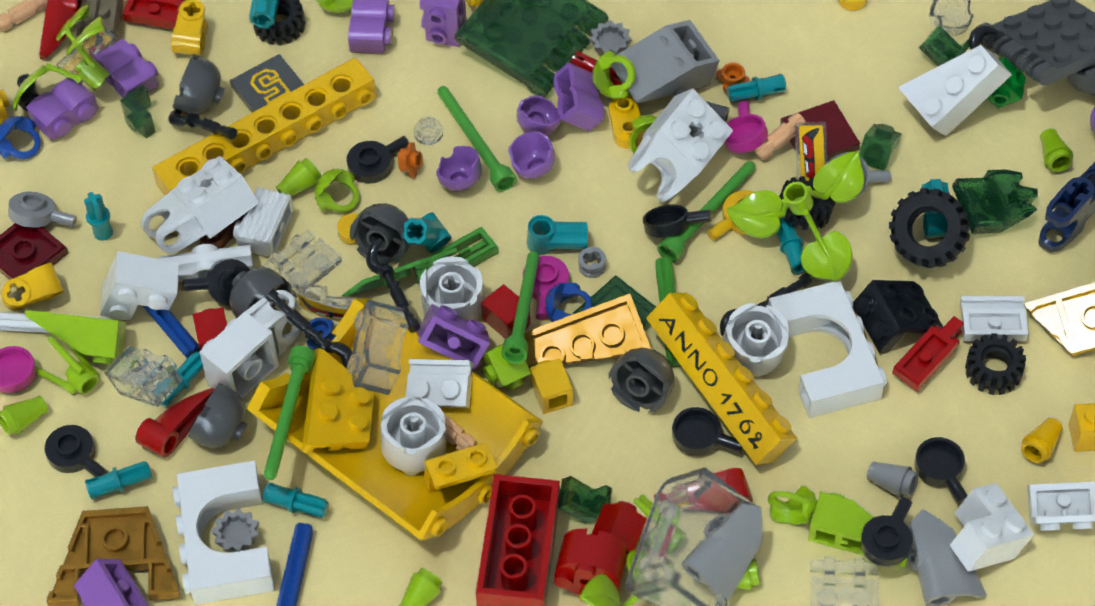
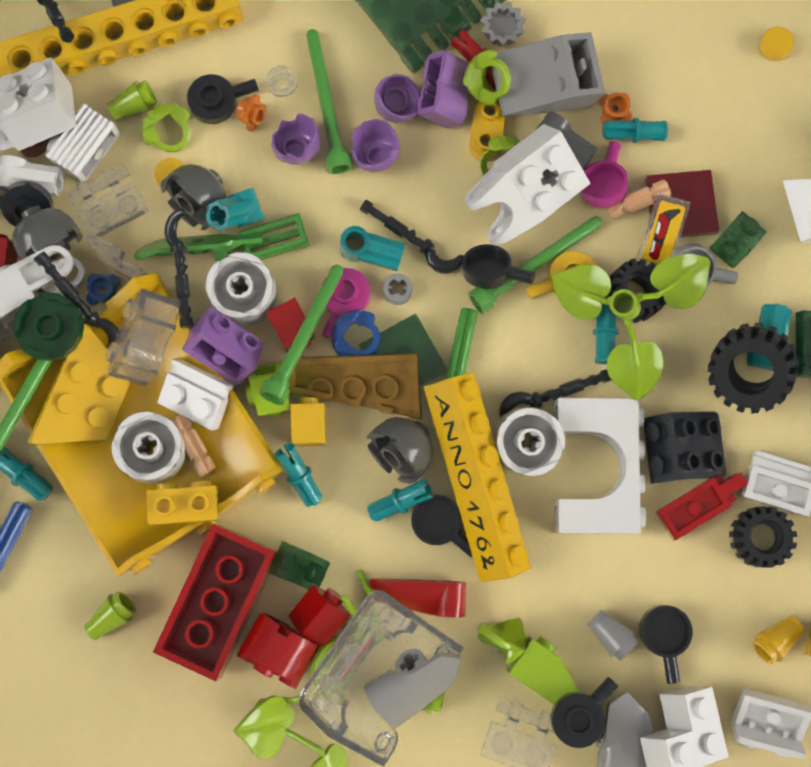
camera: 15 degrees right, 25 degrees up
(293, 351) = (48, 326): none -> dark green tile
(557, 425) = (299, 475): none -> teal axle
(606, 223) = (427, 247): none -> black piece
(656, 422) = (400, 500): none -> teal axle

